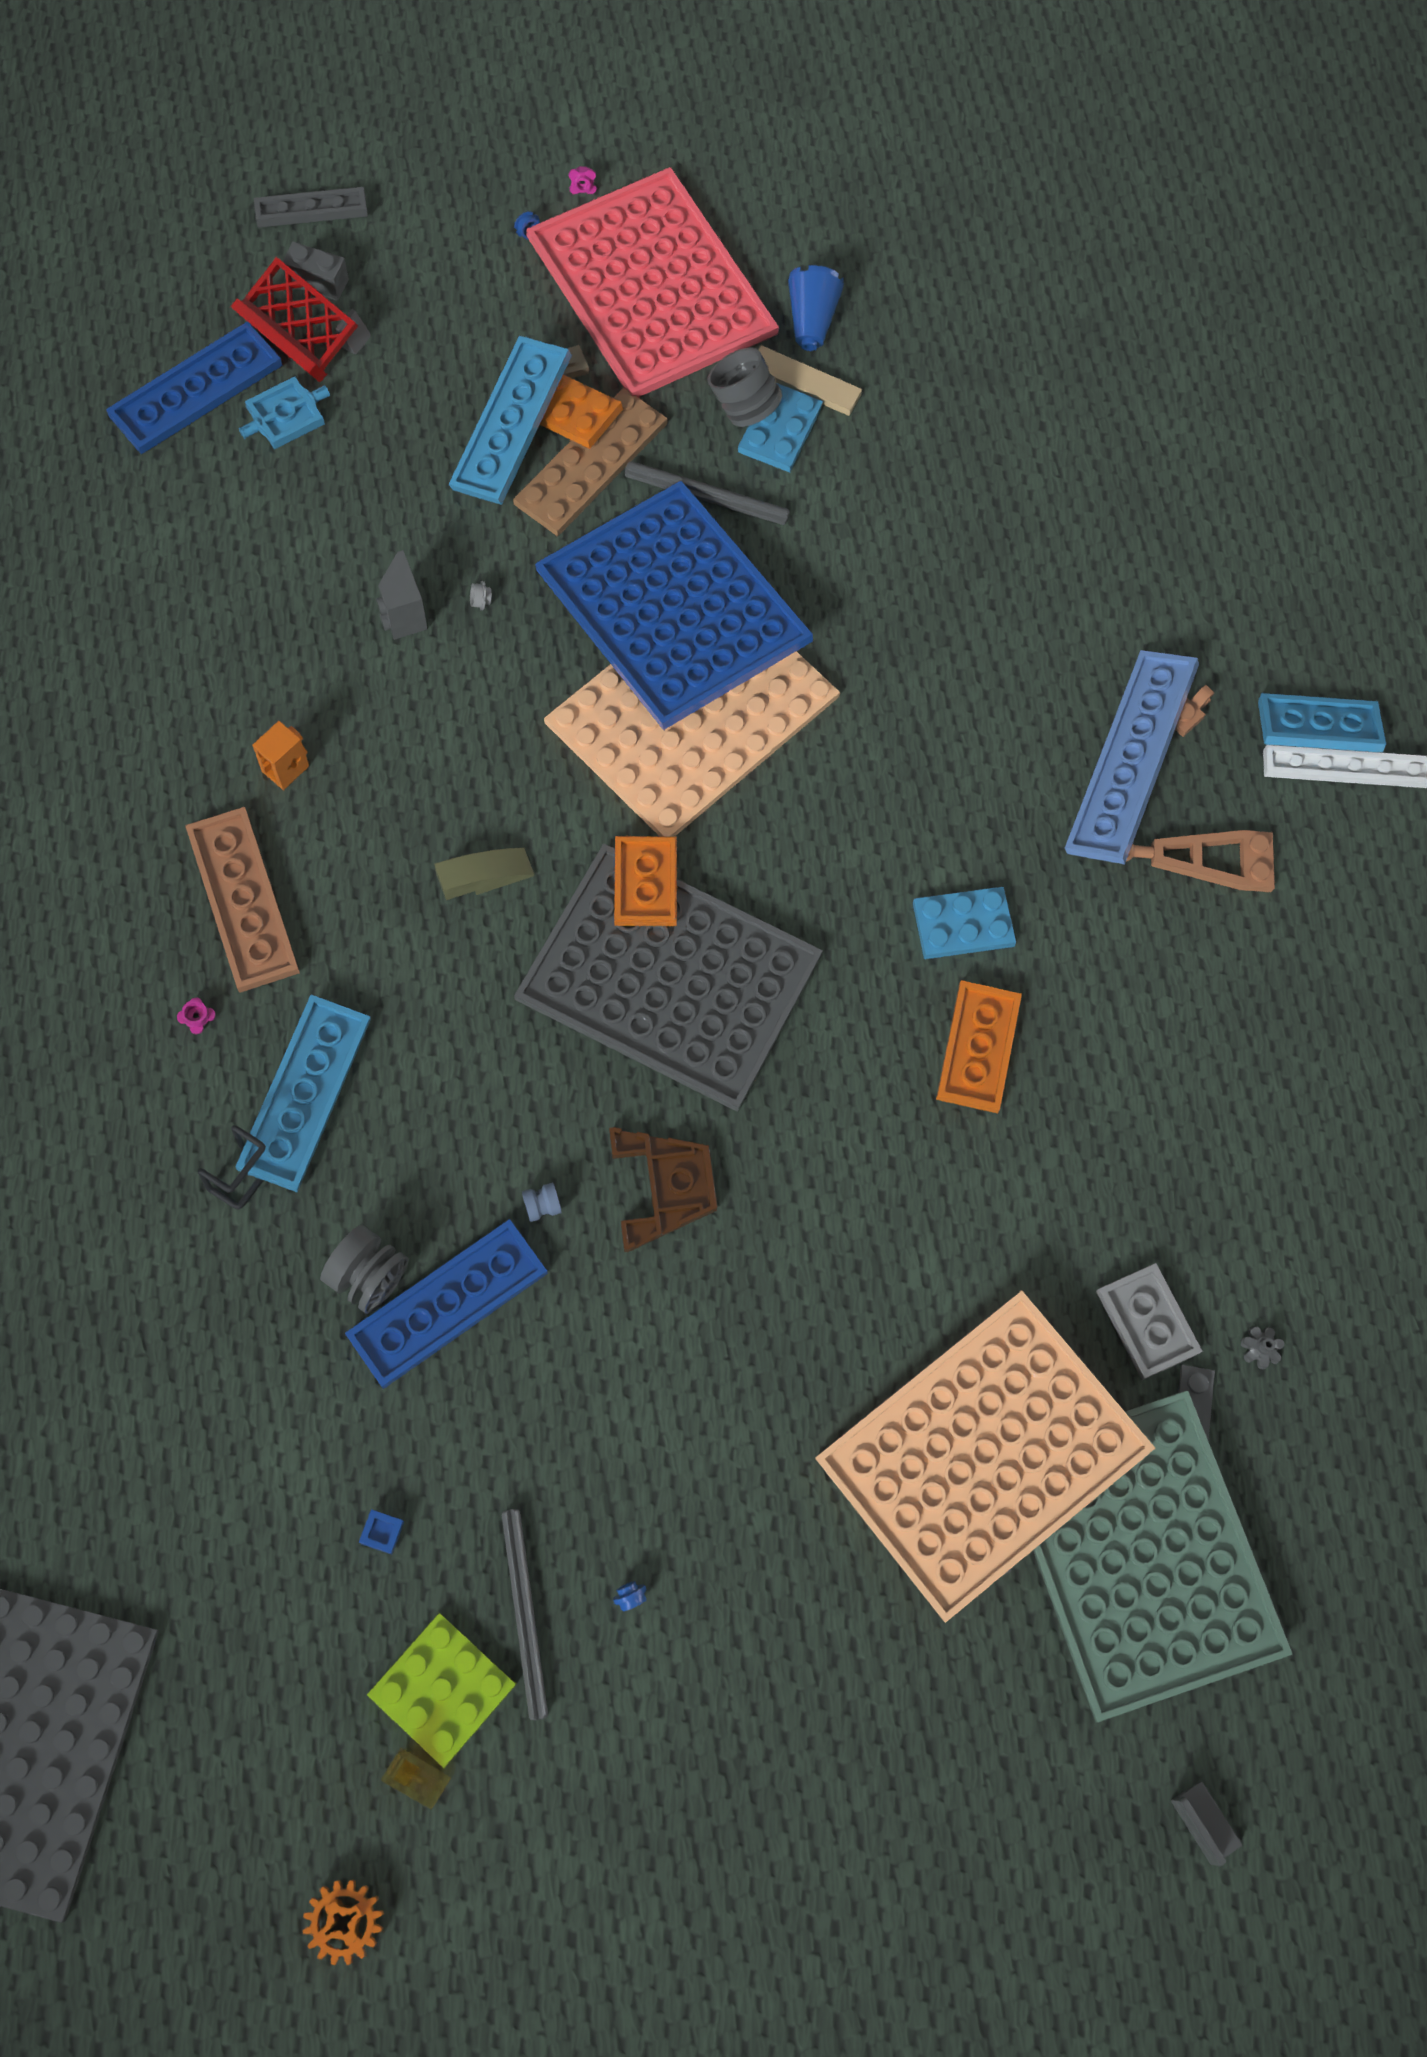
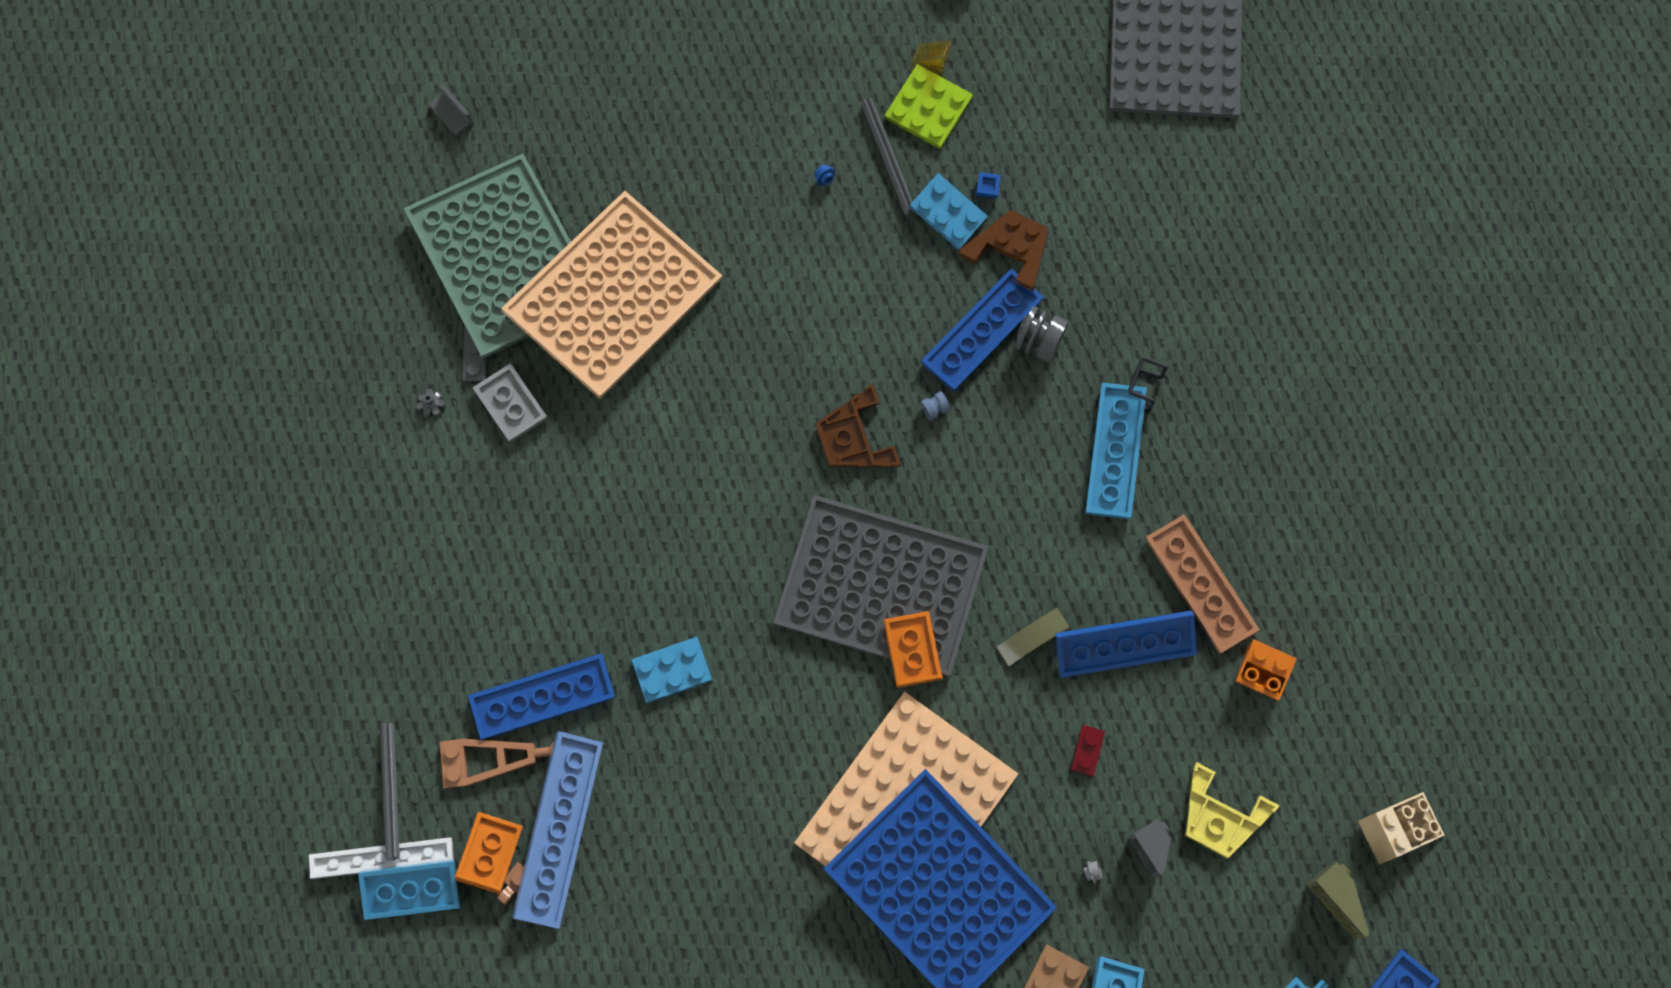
camera: 175 degrees right, 5 degrees up
(90, 571) = (1401, 828): none -> tan slope
(193, 1007) = (1205, 487): dark pink plate -> none
(194, 512) = (1340, 896): none -> olive slope
(195, 773) = (1265, 669): none -> orange slope
(281, 754) = (1205, 694): orange brick -> none
(313, 618) = (1217, 824): none -> light yellow wing
(359, 1434) = (1016, 238): none -> reddish brown wing
(364, 836) = (1126, 644): none -> blue plate
(449, 731) = (1087, 750): none -> dark red plate
(454, 1499) = (948, 211): none -> dark azure plate
(979, 1046) = (649, 574): orange plate -> none
(1138, 918) = (541, 697): none -> blue plate
(1221, 745) = (488, 852): none -> orange tile
(1341, 839) = (389, 791): none -> dark grey axle

